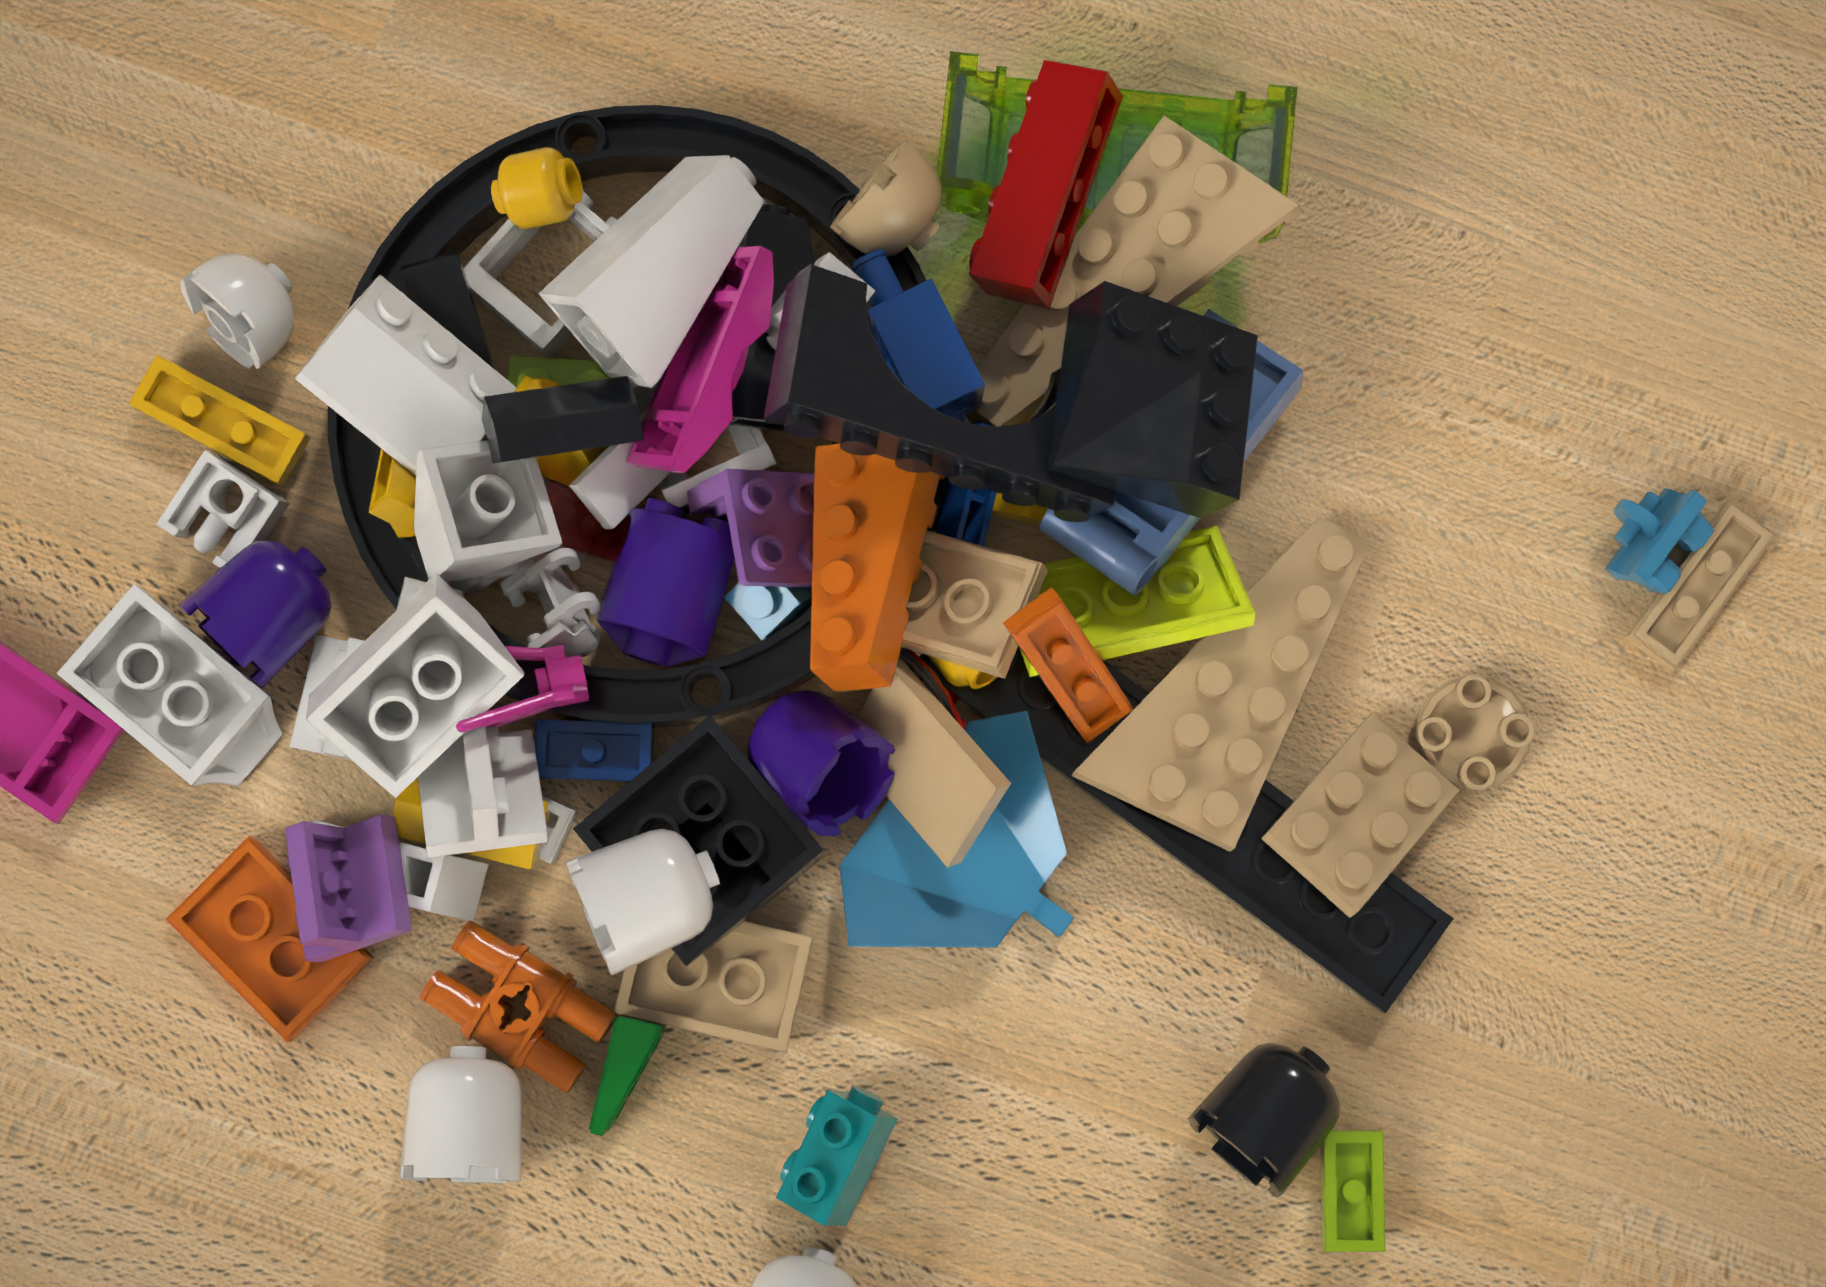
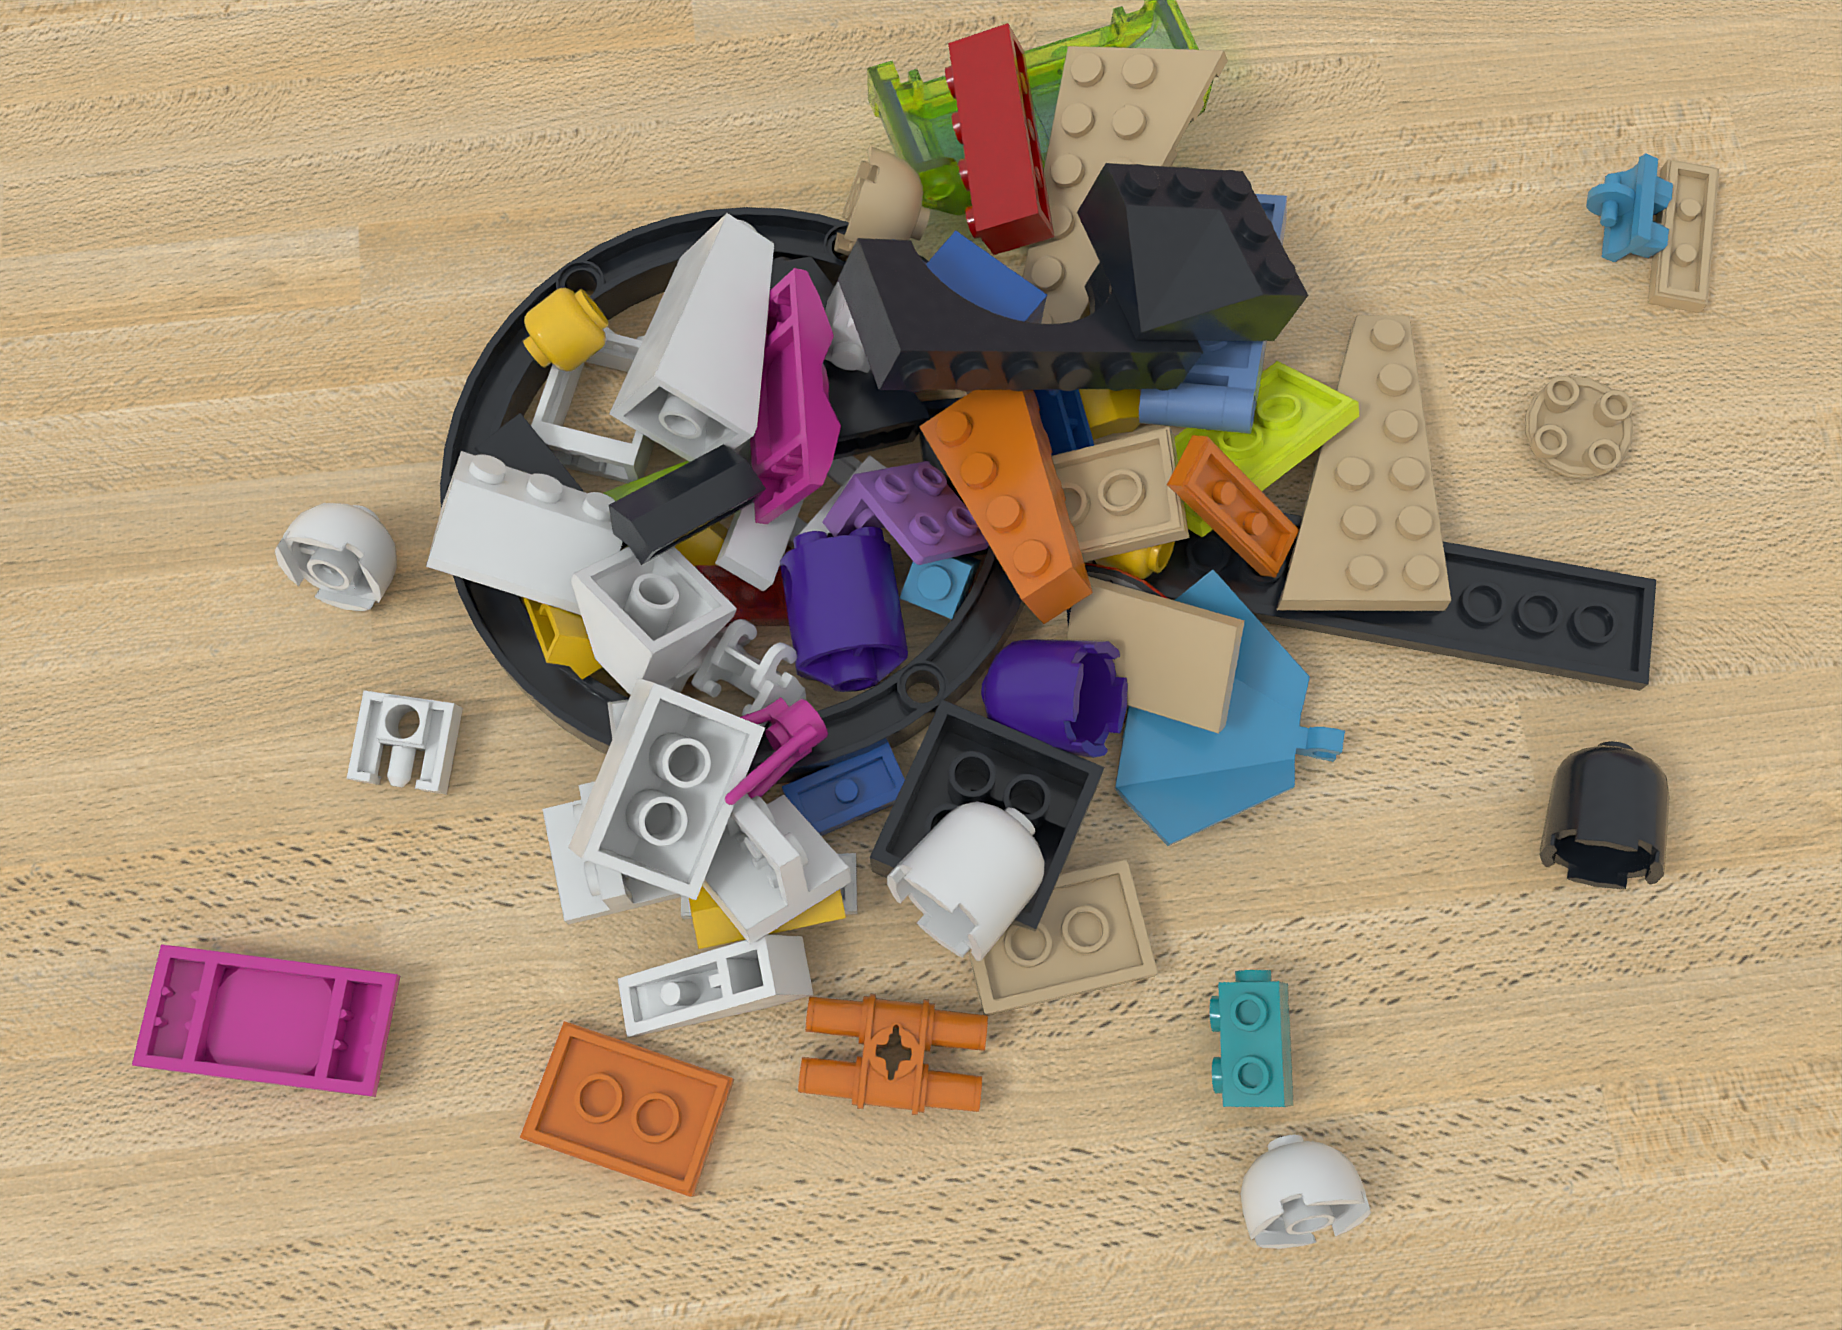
camera: 30 degrees left, 10 degrees down
(174, 692) = (432, 920): white slope -> none
(219, 420) = (363, 662): yellow plate -> none
(263, 606) = (481, 804): dark purple cylinder -> none
(347, 885) = (683, 1014): medium lavender bracket -> none
(463, 1120) = (899, 1182): white cylinder -> none
(626, 1058) = (1017, 1049): green slope -> none
(1353, 1191) = (1711, 852): lime plate -> none
(1360, 815) = (1532, 532): tan plate -> none

